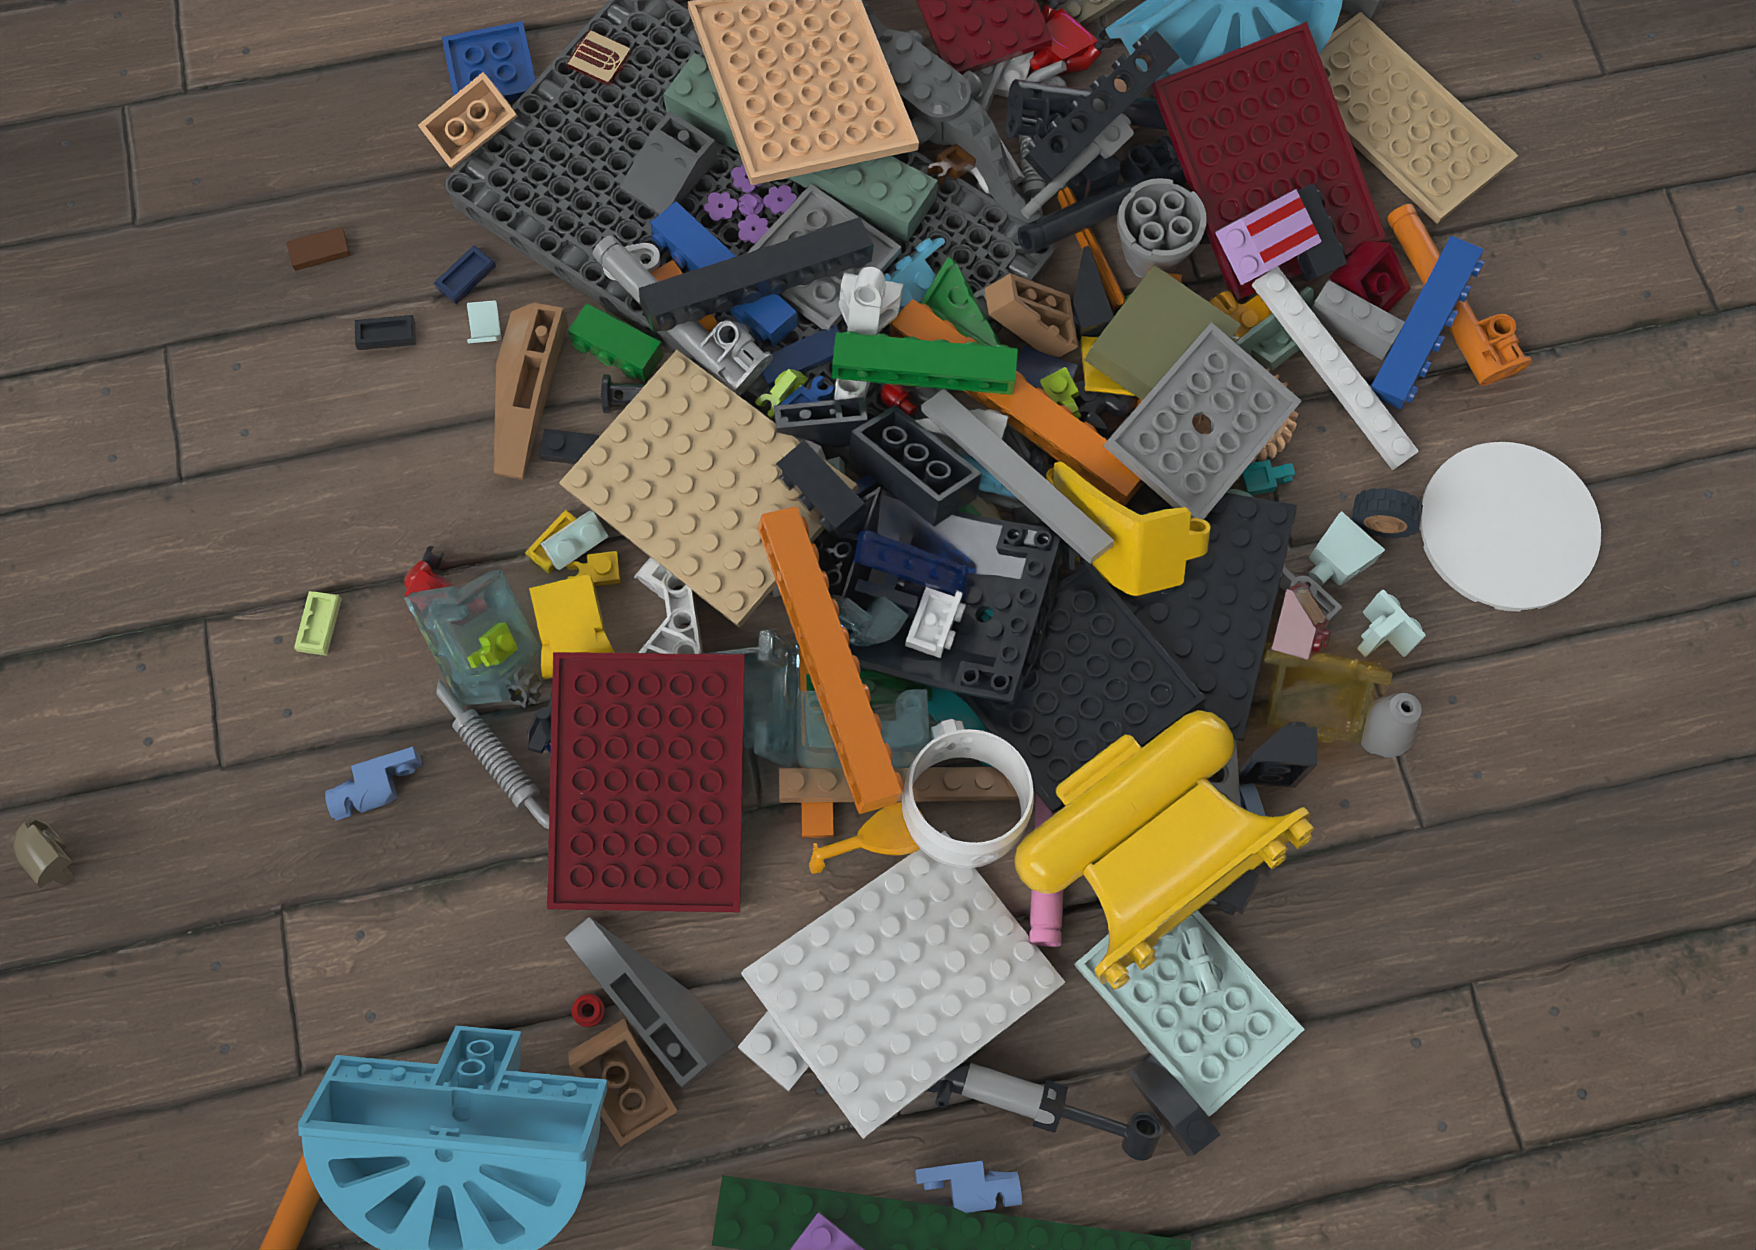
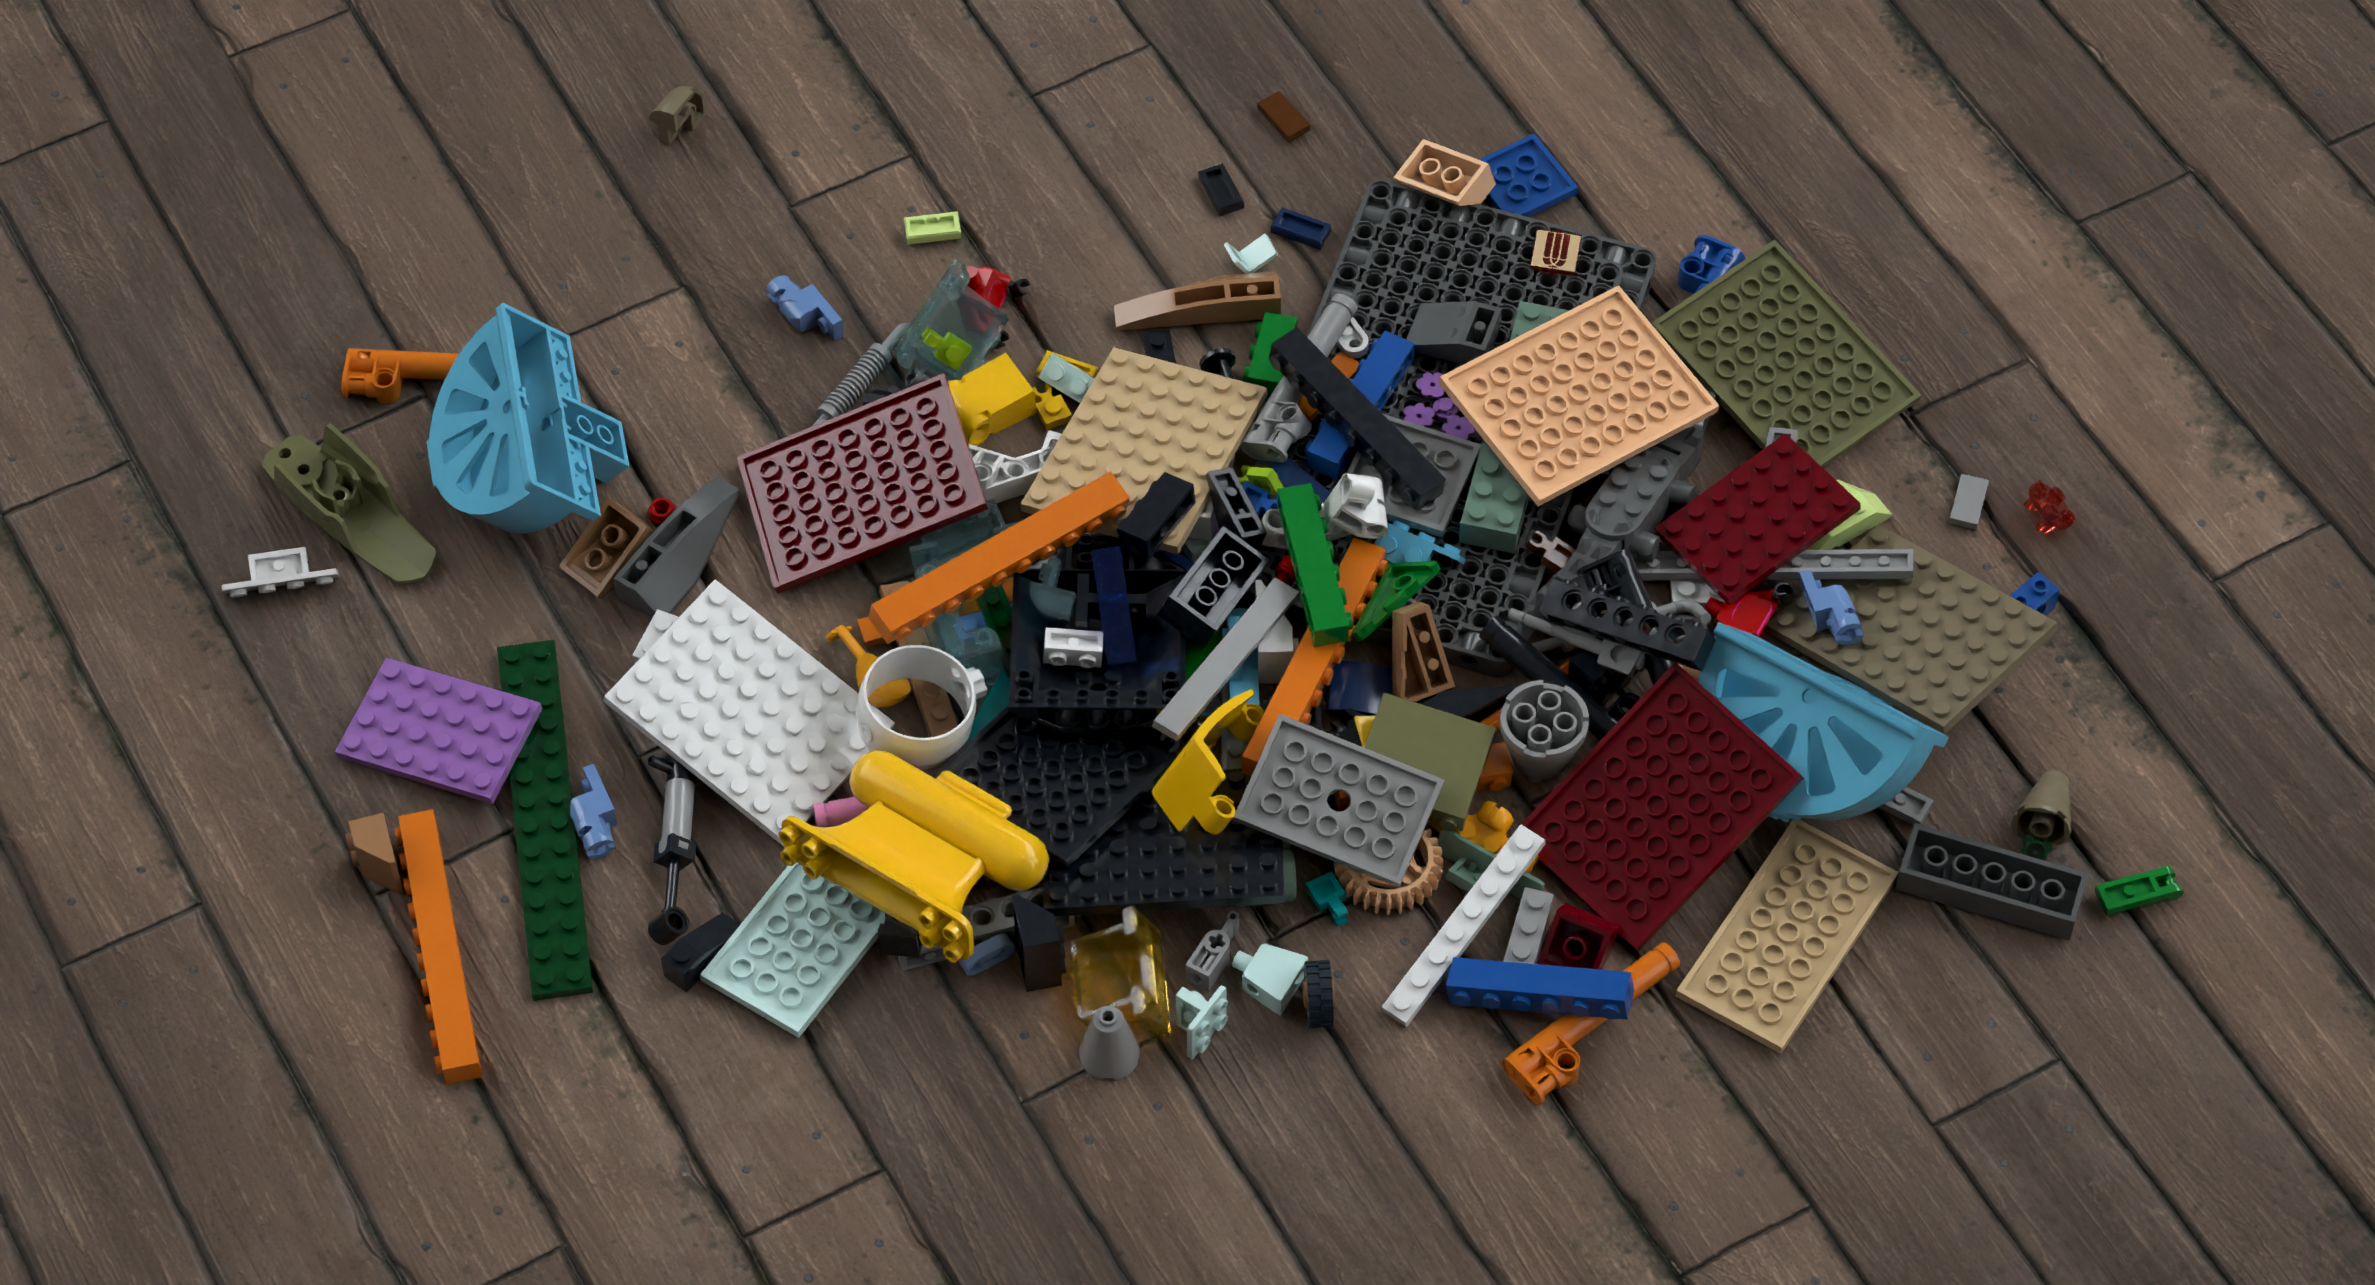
camera: 75 degrees right, 15 degrees down
(1062, 390) = (1346, 700): lime plate -> none
(1201, 961) = (850, 924): light aqua pin -> none
(1268, 237) = (1565, 816): lavender slope -> none
(1301, 624) = (1173, 932): slope -> none
(1327, 254) = (1598, 864): black brick -> none
(1510, 526) = (1356, 1119): white tile -> none

